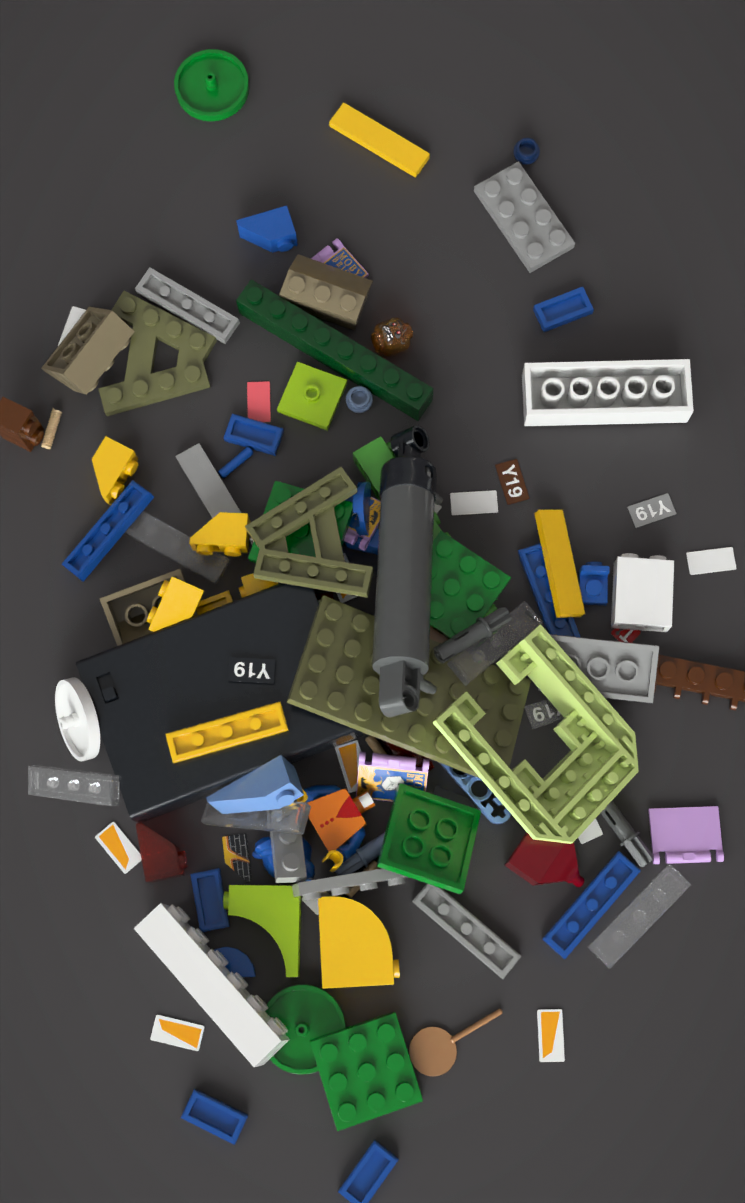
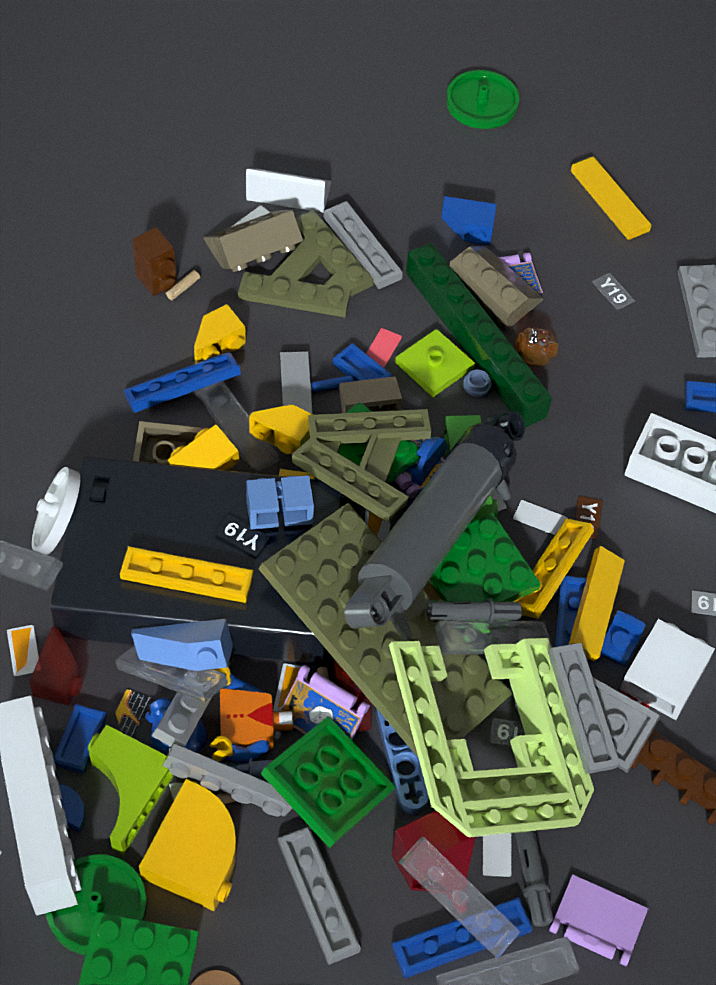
camera: 20 degrees right, 20 degrees down
(88, 277) = (287, 189): none -> white slope
(278, 615) = (295, 501): none -> medium blue piece
(280, 462) = (375, 394): none -> dark tan brick
(428, 240) = (613, 291): none -> clear sticker
(509, 542) = (555, 564): none -> yellow tile
(580, 886) = (459, 897): none -> clear tile
(597, 672) = (583, 708): none -> light grey plate

